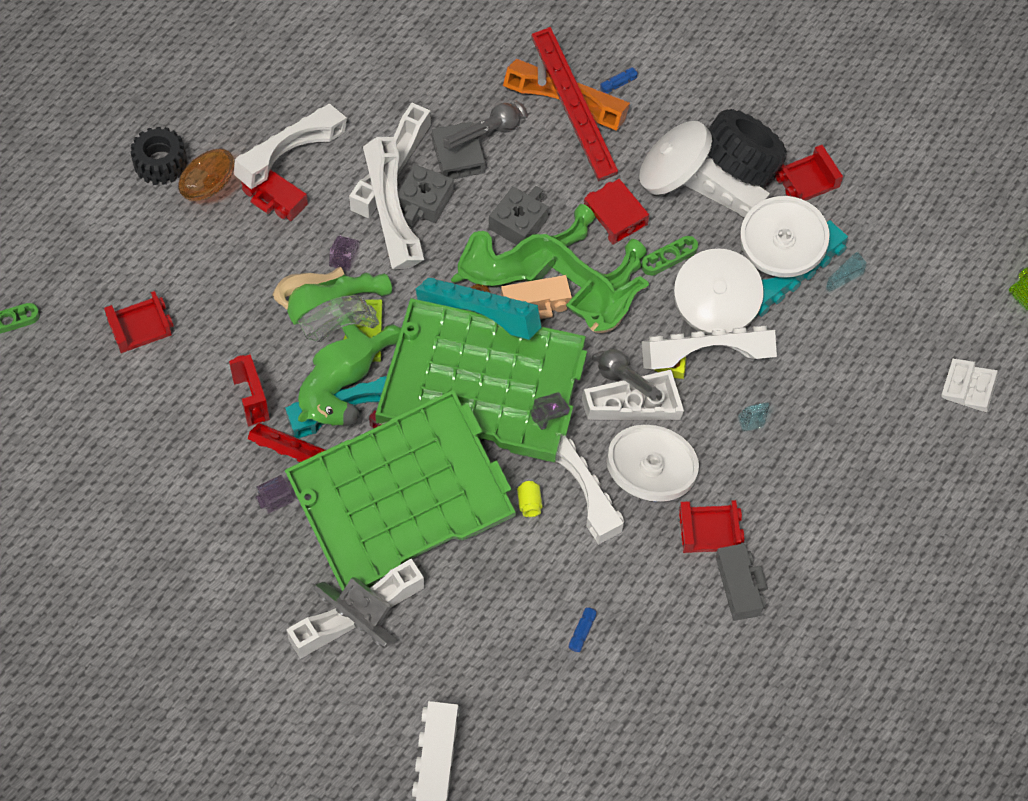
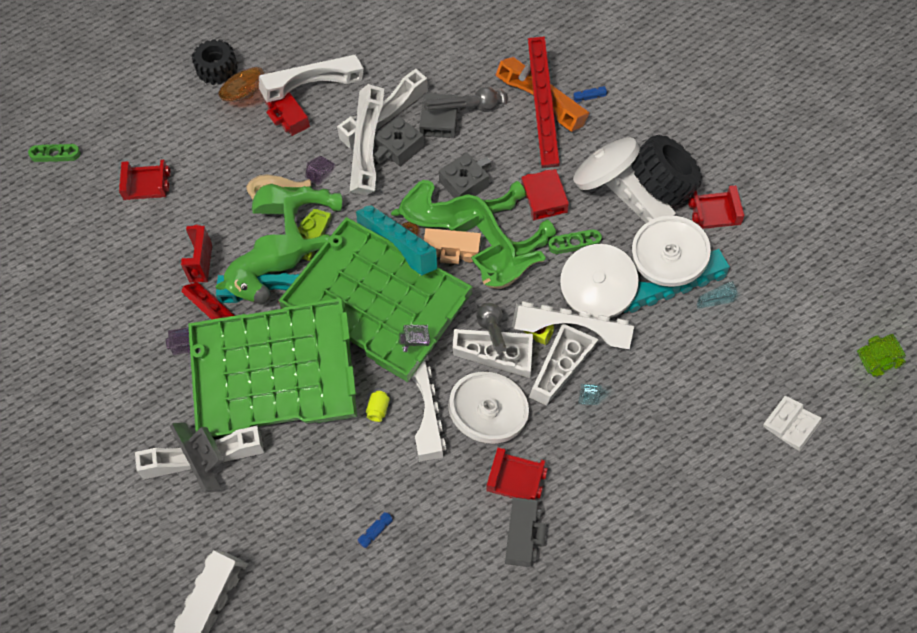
camera: 25 degrees right, 0 degrees up
(335, 314) = (284, 213): clear arch -> none
(710, 387) = (563, 359): none -> white wedge

